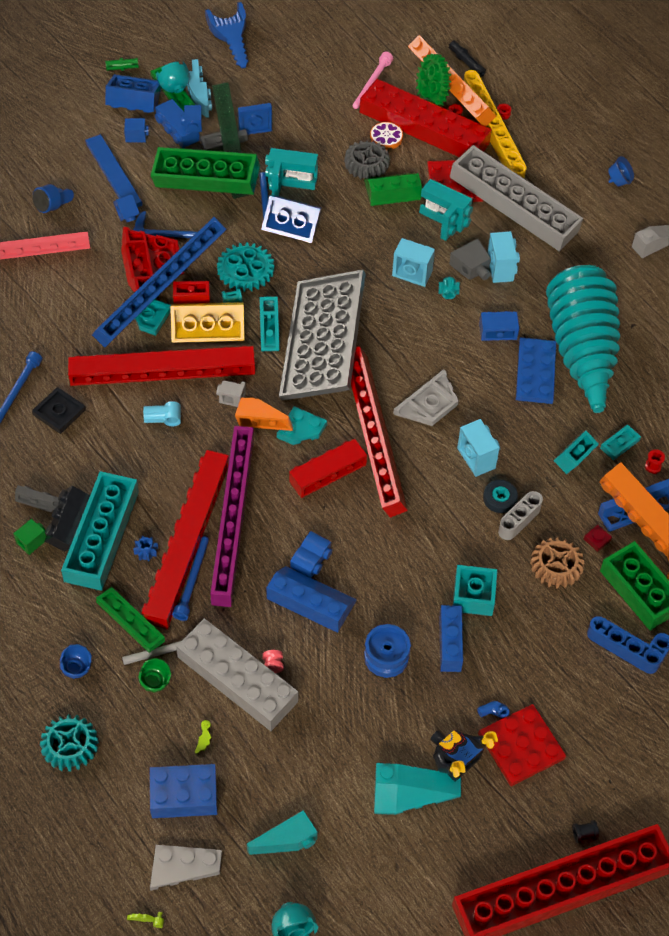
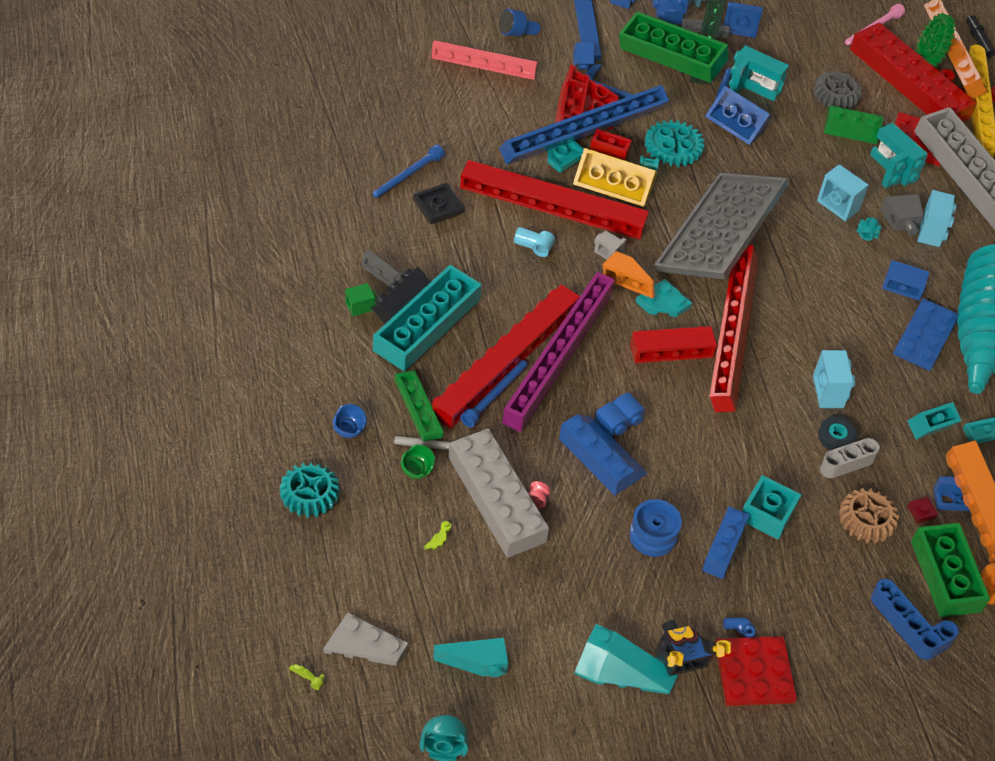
camera: 20 degrees right, 5 degrees down
(145, 548) = (462, 349): blue gear -> none
(183, 791) = (396, 574): blue brick -> none
(269, 324) = (674, 198): teal slope -> none
(387, 135) = (869, 76): tile -> none
(429, 402) = (802, 323): light grey wing -> none

